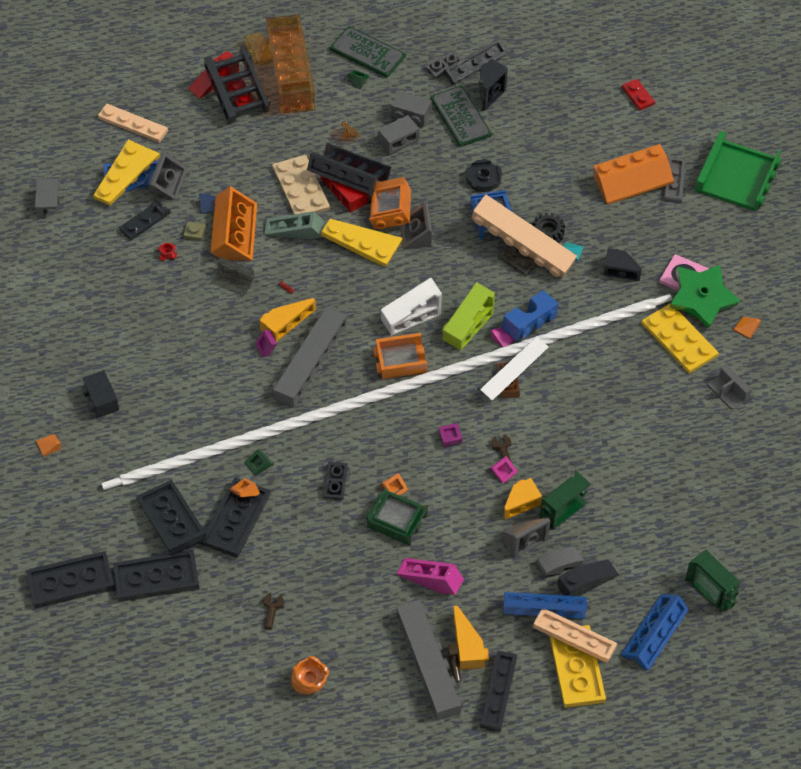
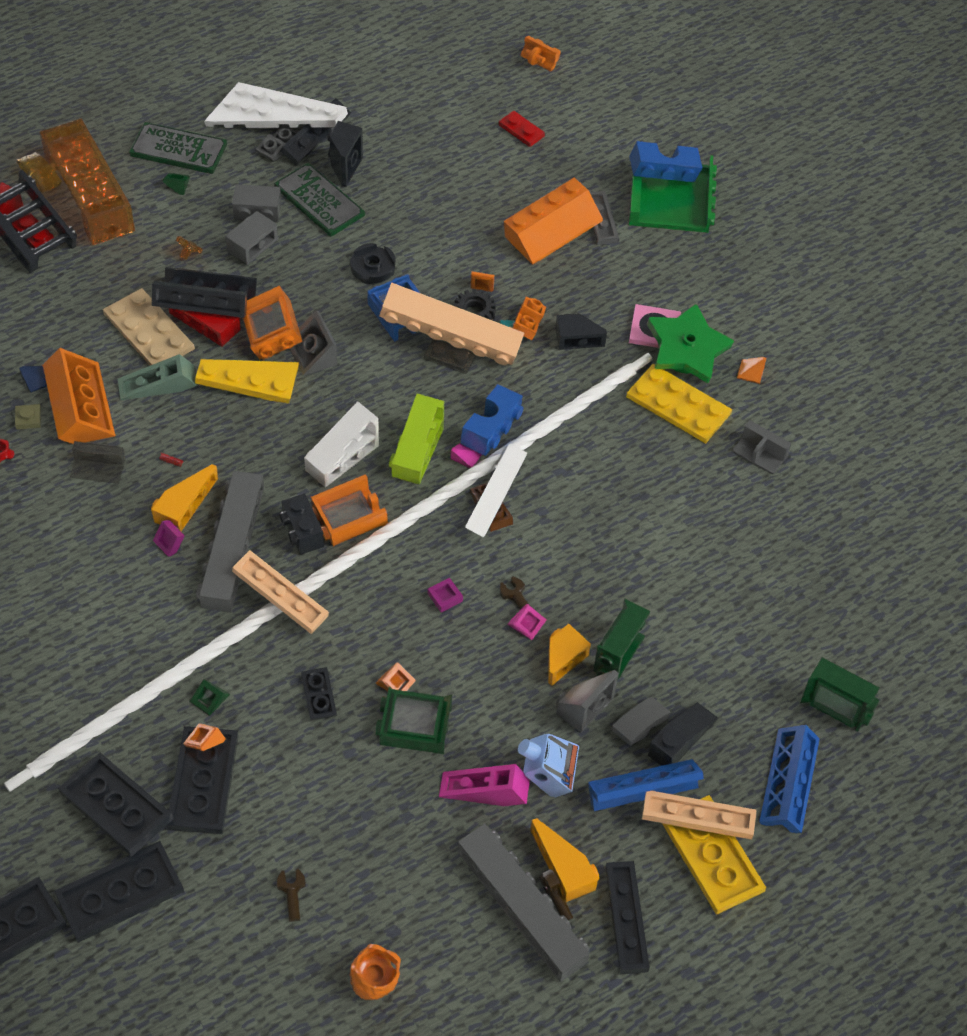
camera: 20 degrees left, 0 degrees up
(331, 401) = (280, 592): none -> light nougat plate
(364, 358) = (302, 524): none -> black brick
(444, 35) = (269, 108): none -> white wing
(481, 571) = (550, 763): none -> light blue torso
(561, 209) = (482, 281): none -> orange slope
(588, 245) = (529, 317): none -> orange slope
(673, 35) = (539, 53): none -> orange hips
(724, 145) = (650, 163): none -> blue arch

